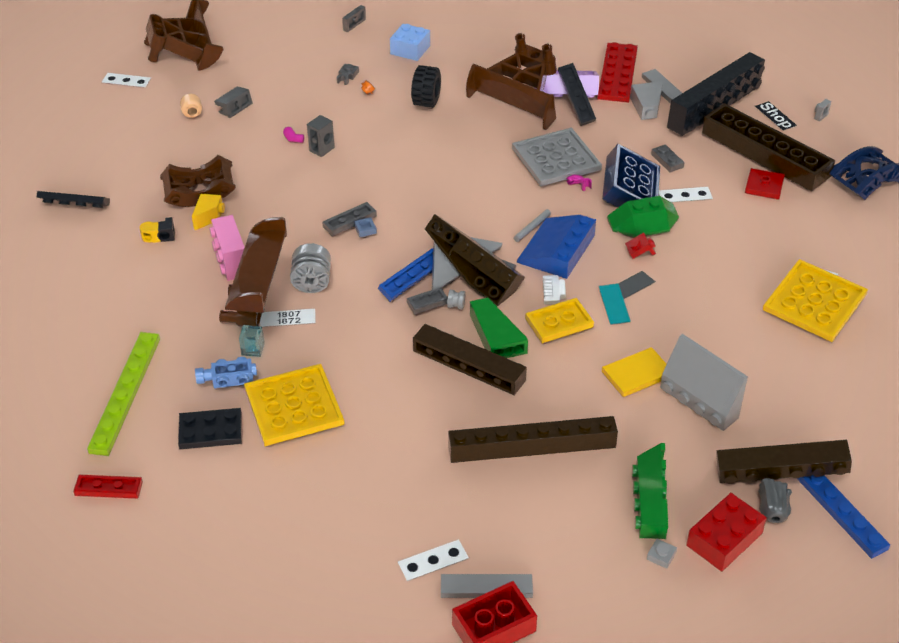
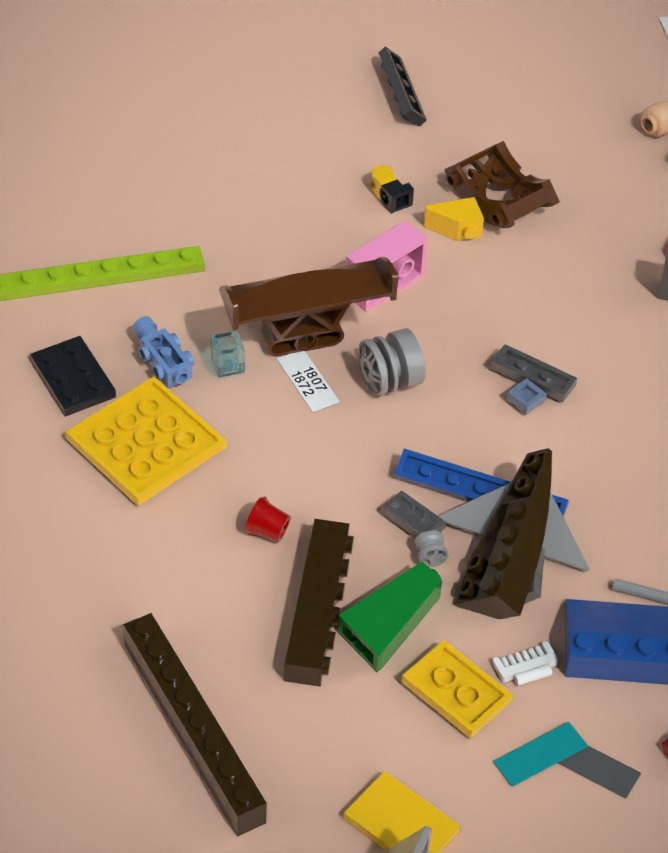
camera: 65 degrees right, 5 degrees up
(396, 363) = (267, 520): none -> red piece

